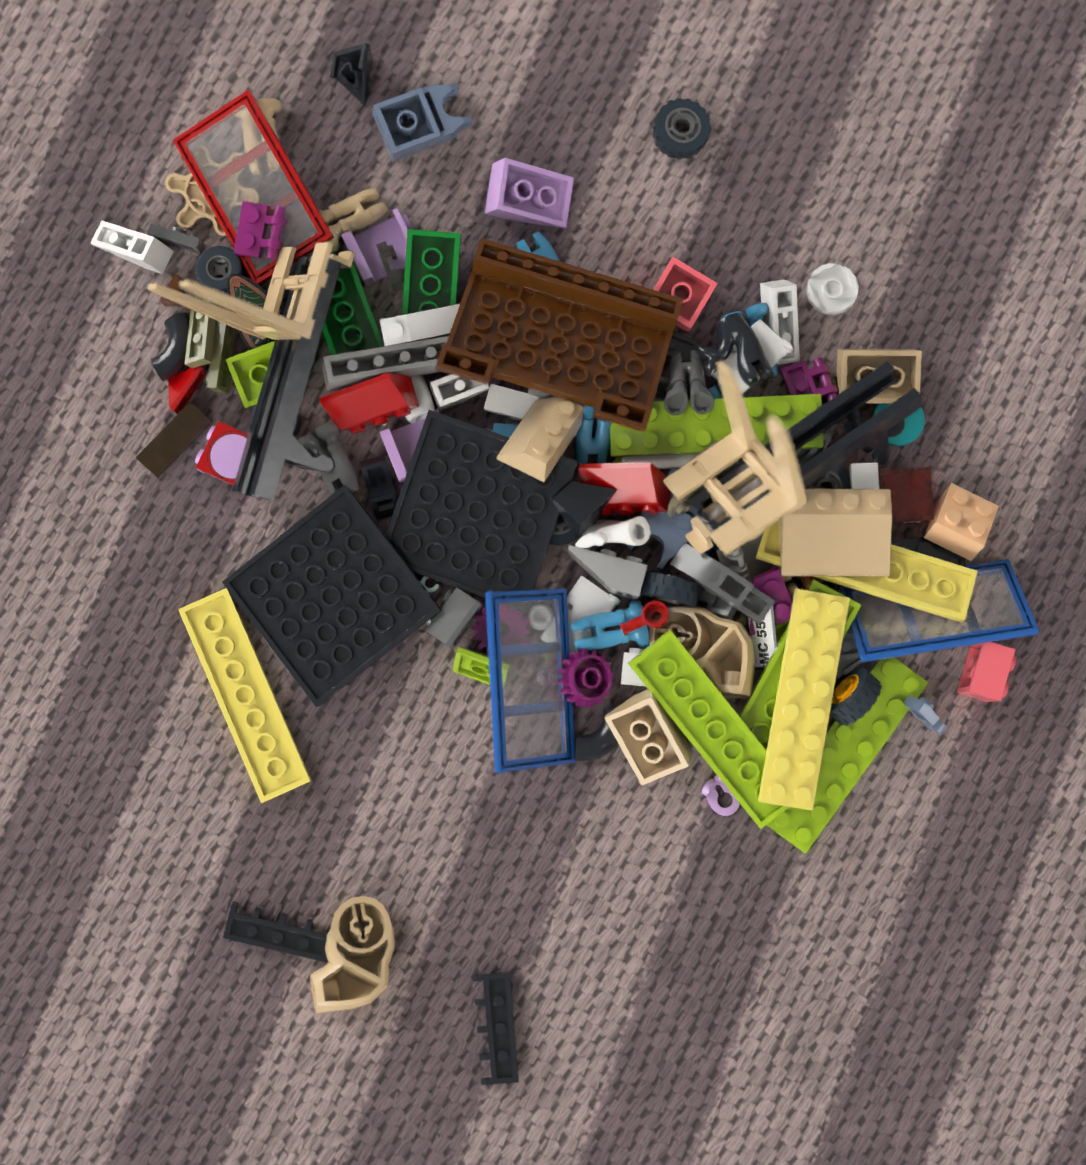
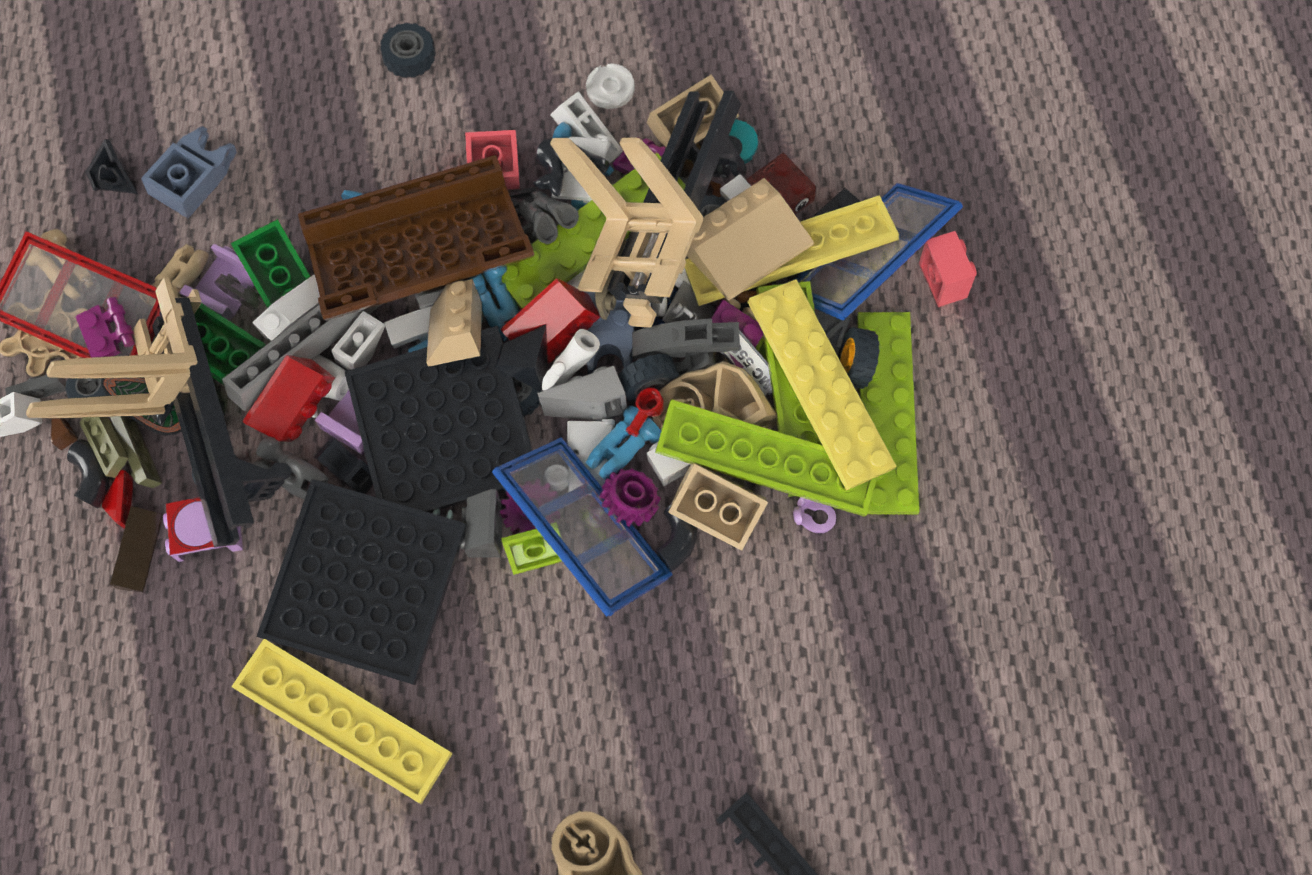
camera: 30 degrees left, 15 degrees down
(249, 372) = (169, 449): lime slope -> none
(528, 194) = (316, 169): lavender slope -> none
(923, 710) = (924, 333): sand blue plate -> none
(961, 522) = (839, 176): light nougat brick -> none

